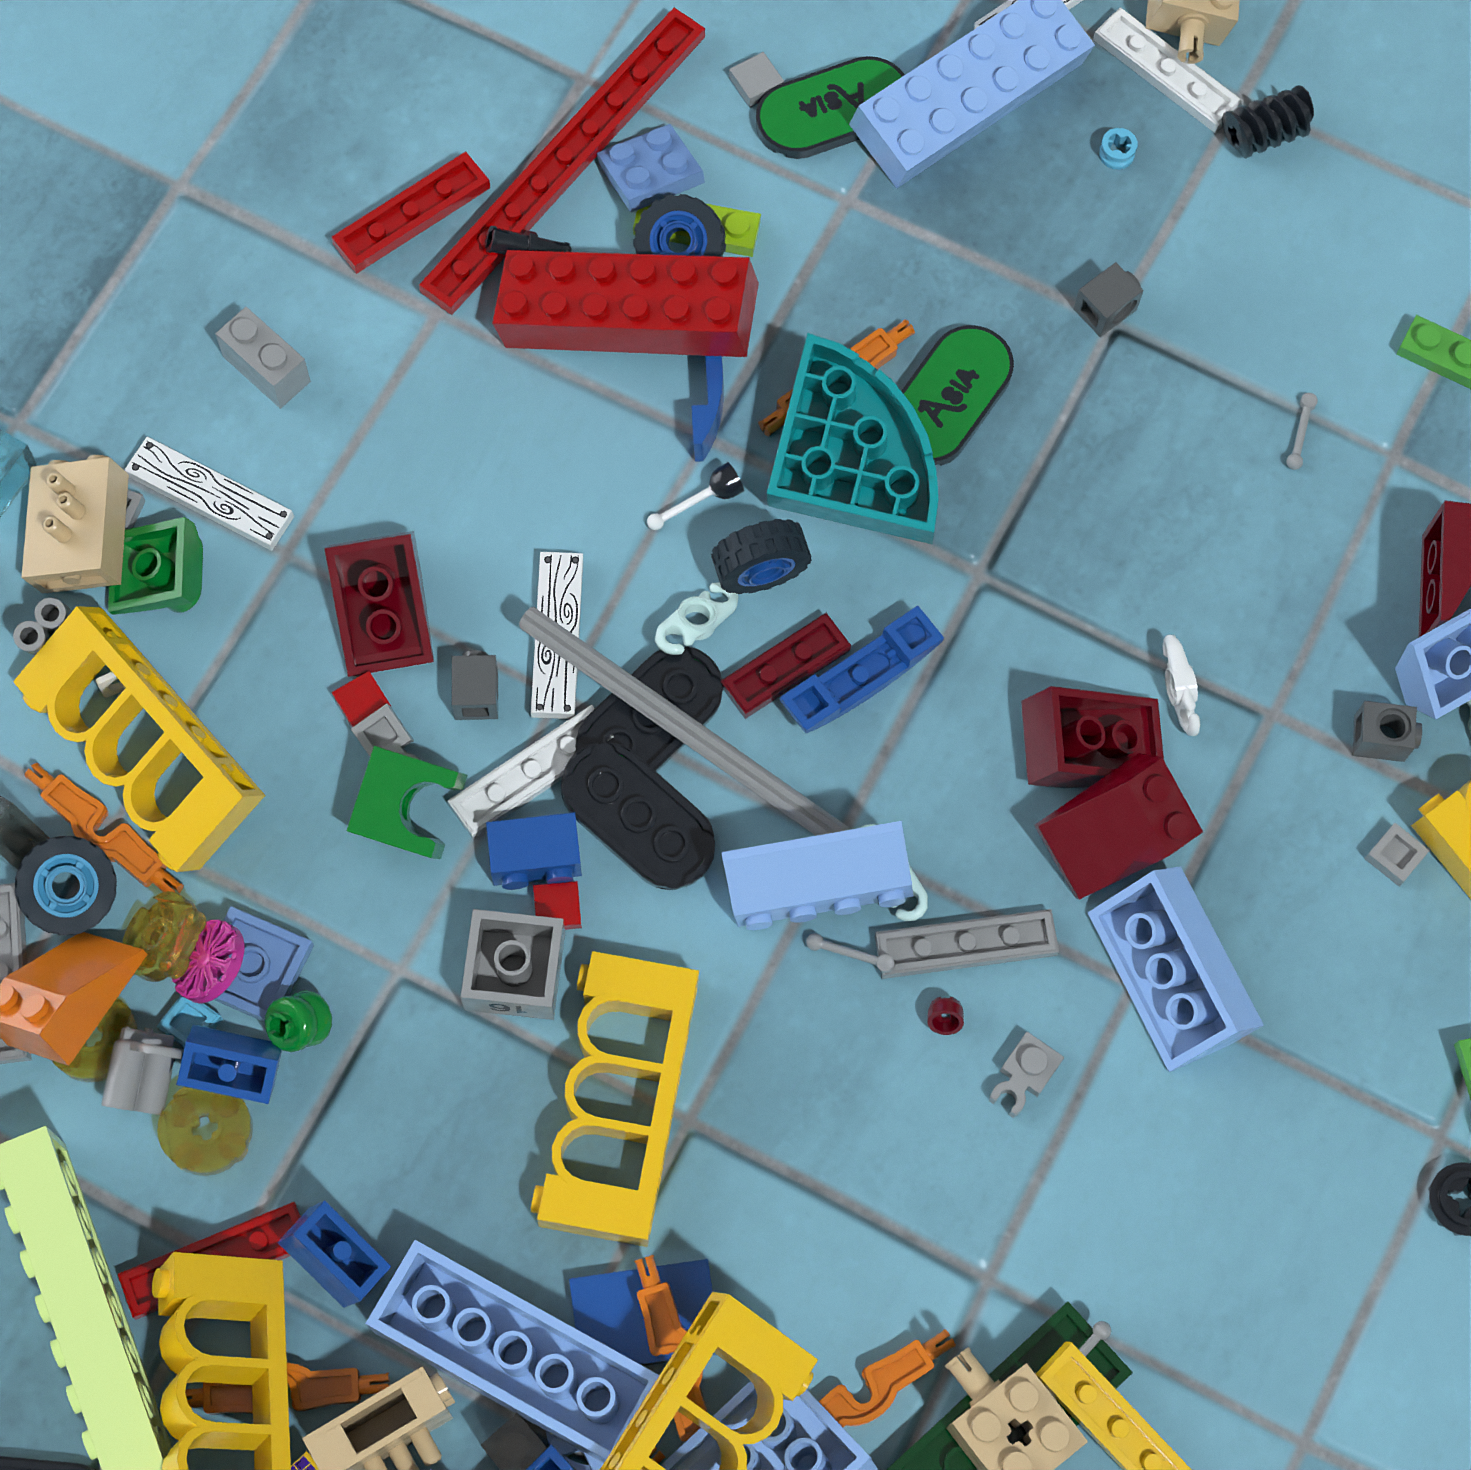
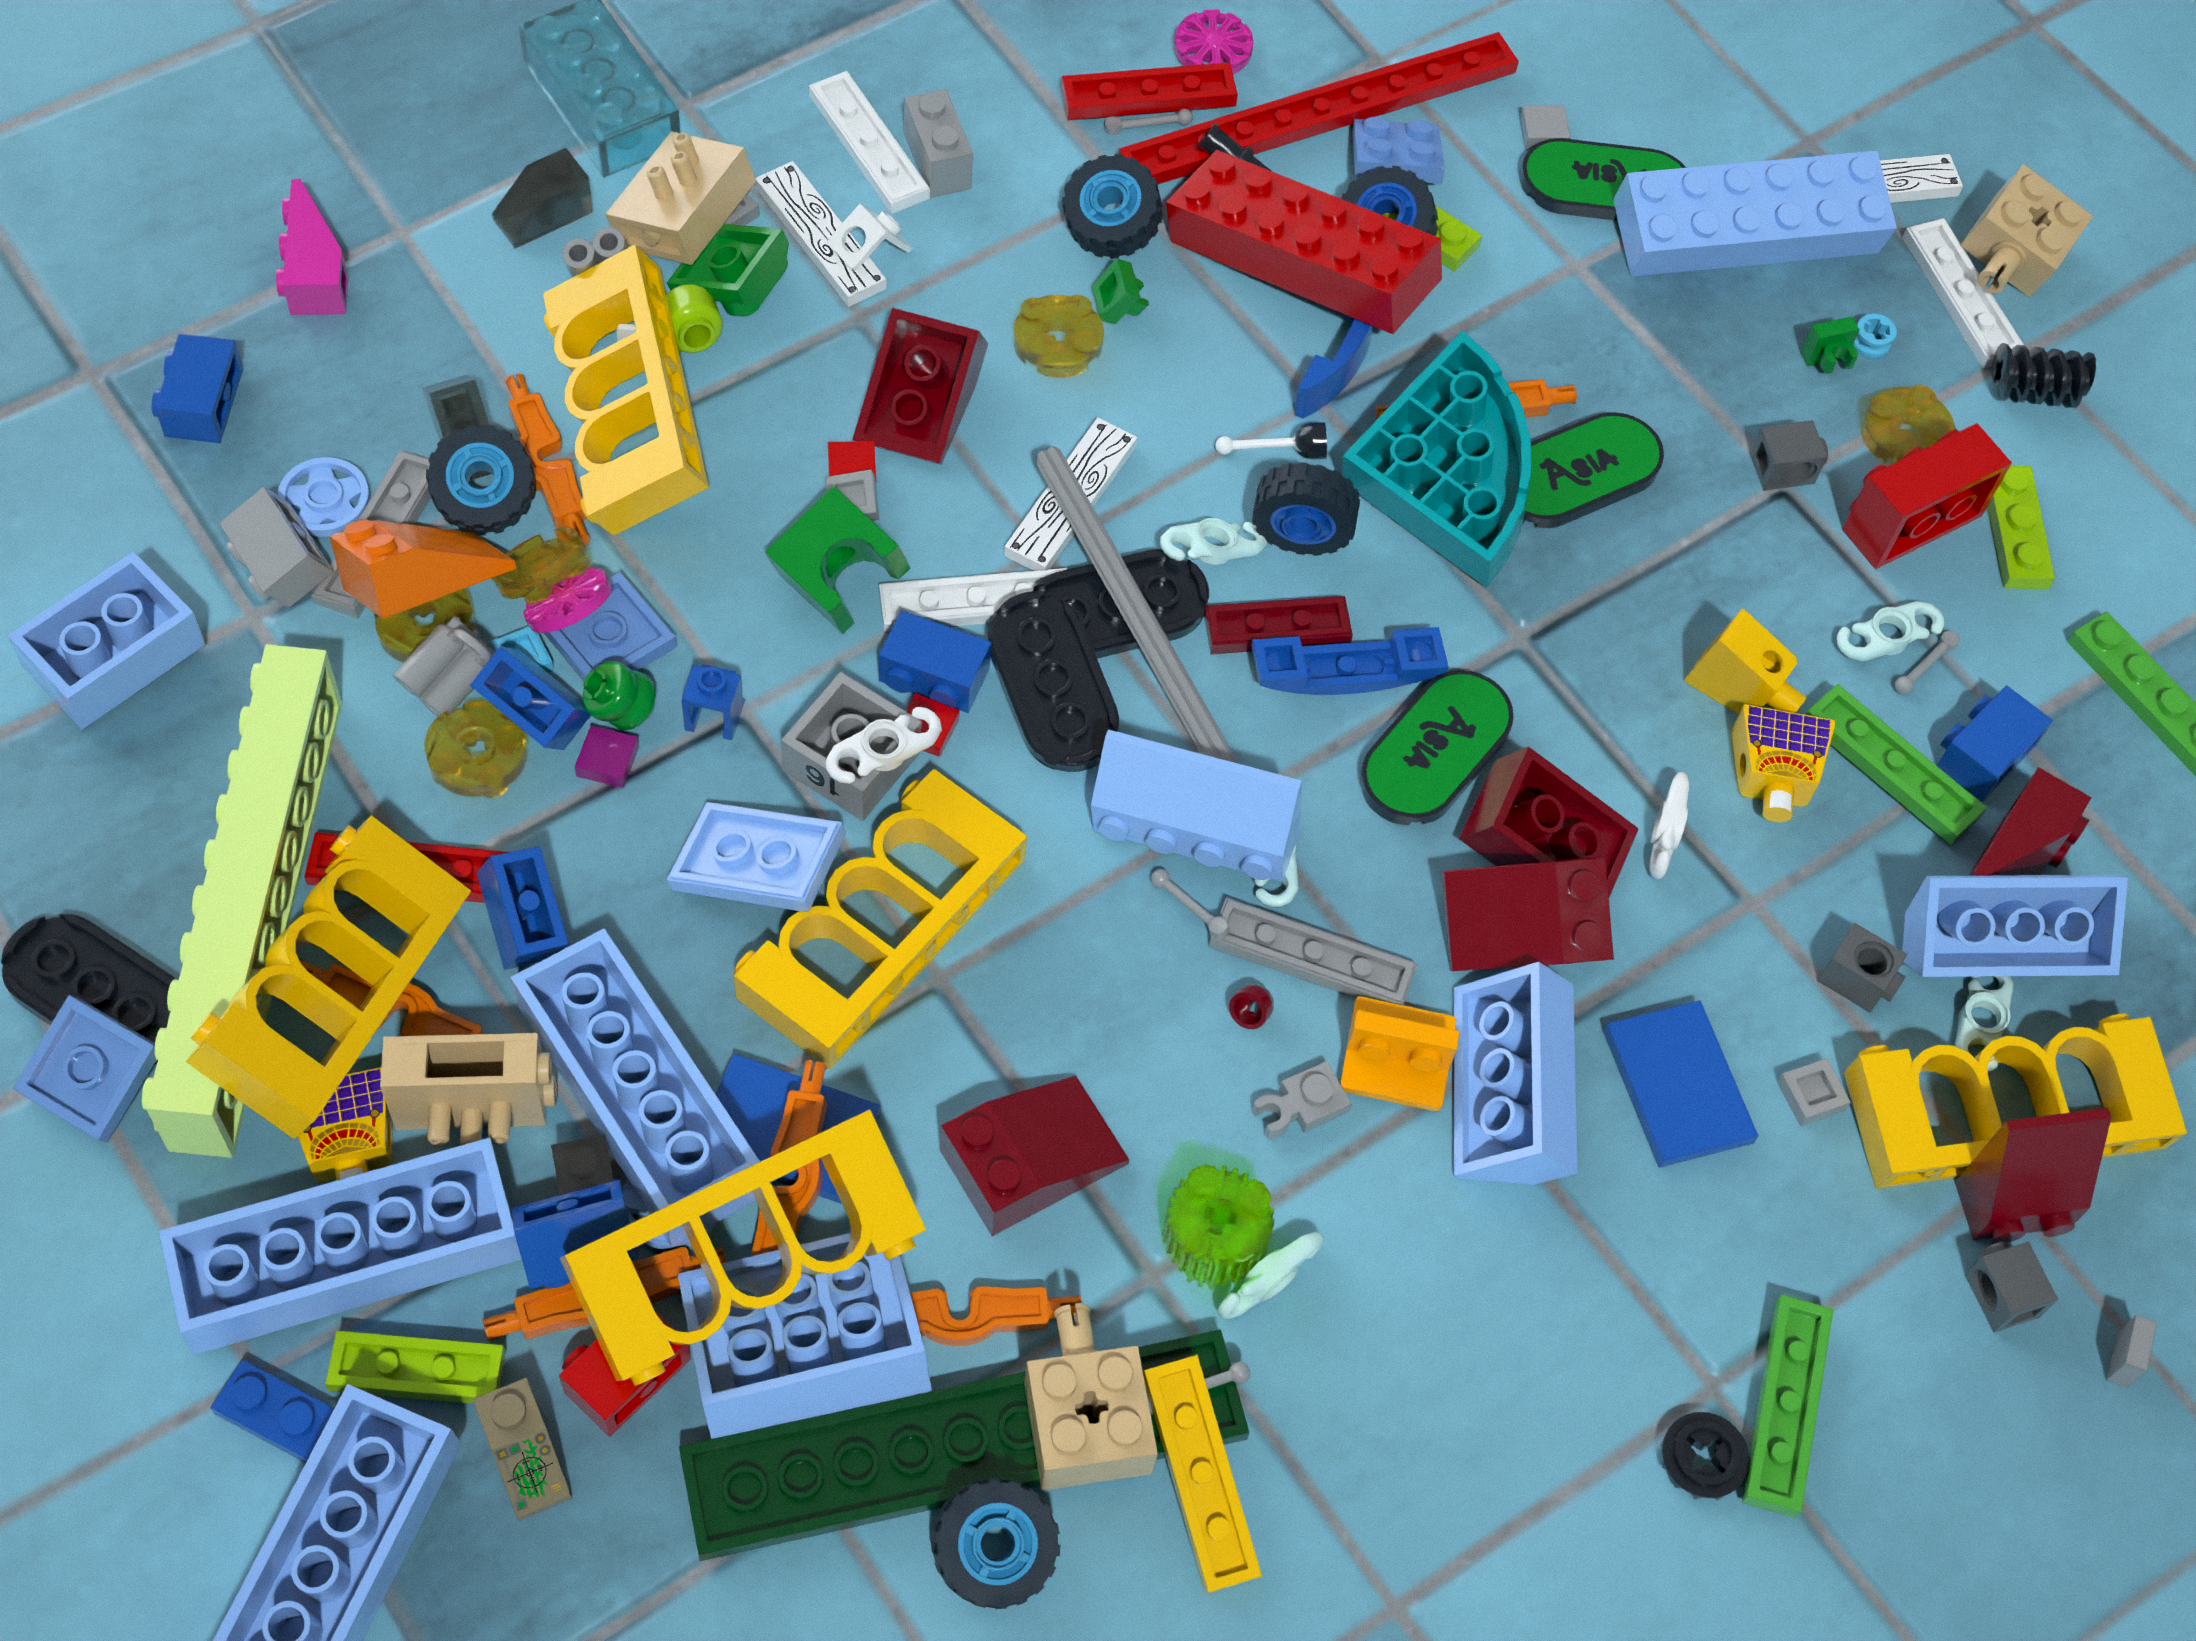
camera: 25 degrees right, 10 degrees down
(153, 634) = (694, 318): none -> lime head
(199, 381) = (869, 142): none -> white tile
(262, 469) = (876, 230): none -> white bracket
(314, 1075) = (607, 756): none -> magenta tile
(374, 978) = (713, 690): none -> blue window
(397, 258) = (1114, 125): none -> light grey hinge
(431, 323) = (1107, 182): none -> black wheel
(437, 135) = (1213, 43): none -> dark pink wheel
(465, 465) = (1058, 313): none -> clear yellow plate
(475, 686) = (964, 499): dark grey brick -> none
(492, 1102) = (757, 856): none -> light blue tile
(493, 424) = (1118, 292): none -> green tile
(543, 979) = (859, 745): none -> white piece
(844, 1231) = (1029, 1151): none -> dark red slope
(967, 710) = (1436, 747): none -> green tile
(1040, 1199) = (1222, 1200): none -> clear neon green brick
(1077, 993) = (1399, 1053): none -> light orange bracket
(1080, 1234) = (1270, 1275): none -> light aqua piece
(1090, 174) = (1831, 342): none -> green tile
(1174, 518) = (1747, 668): none -> yellow torso
(1191, 201) = (1909, 406): none -> clear yellow plate
(1234, 285) = (1925, 495): none -> red brick
(1236, 581) = (1779, 757): none -> torso
(1257, 434) = (1879, 644): none -> light aqua piece
(1296, 902) = (1680, 1083): none -> blue tile
(1312, 270) = (2020, 532): none -> lime plate
(1322, 538) = (1898, 766): none -> bright green plate
(1387, 480) = (1993, 742): none -> blue brick

